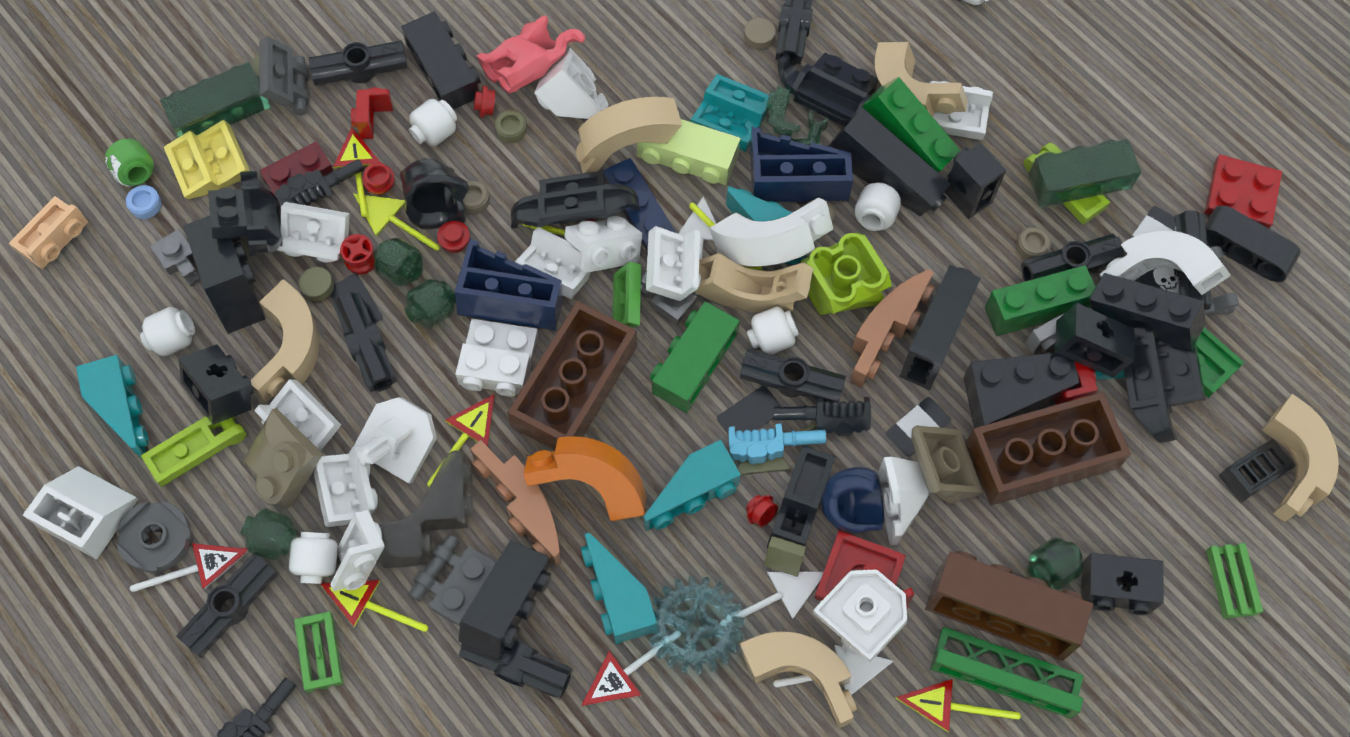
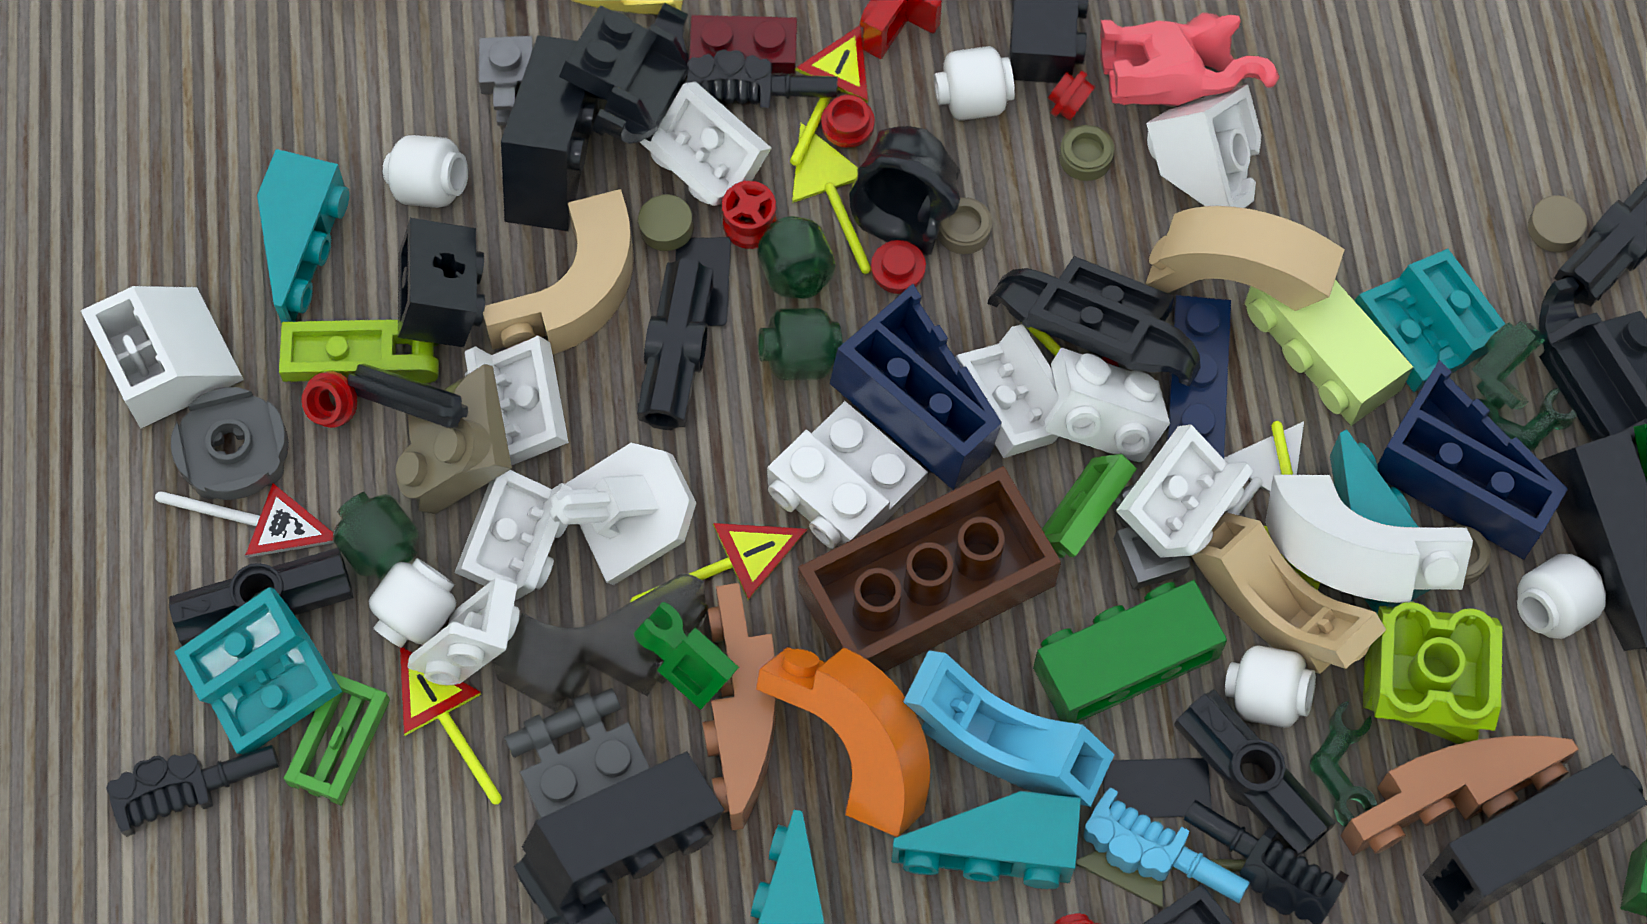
camera: 35 degrees right, 0 degrees up
(191, 488) = (317, 402): none -> red plate
(240, 450) = (408, 395): none -> black axle
(252, 643) = (258, 671): none -> teal slope
(484, 494) = (690, 661): none -> green plate
(663, 435) = (1003, 739): none -> medium azure arch
(821, 352) = (1325, 766): none -> clear green arm

